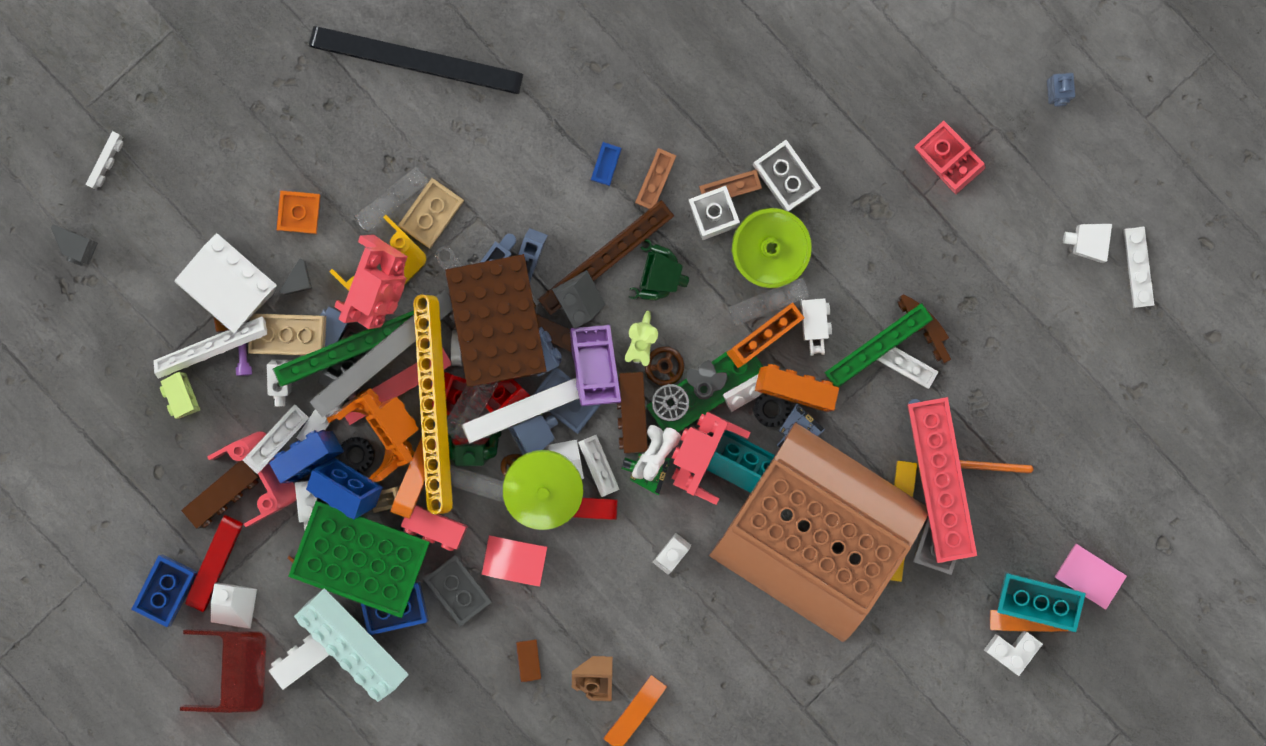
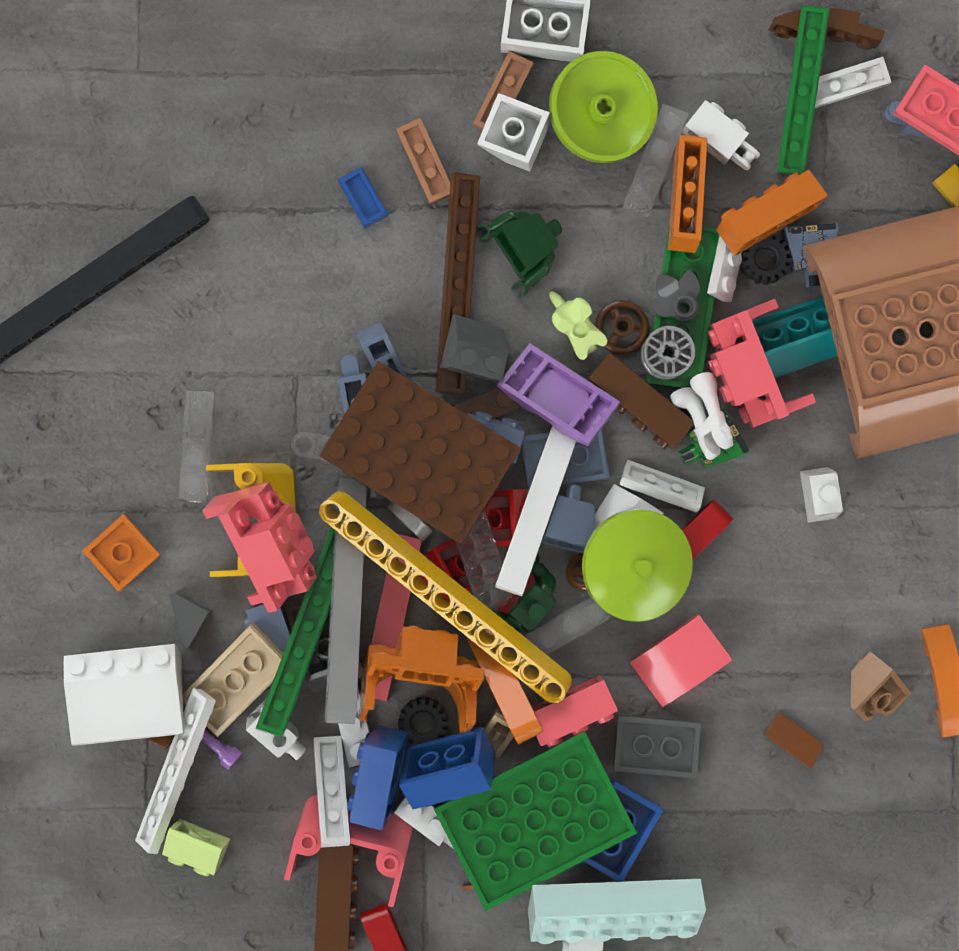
camera: 40 degrees left, 0 degrees up
(431, 213) = (248, 419): tan tile -> none

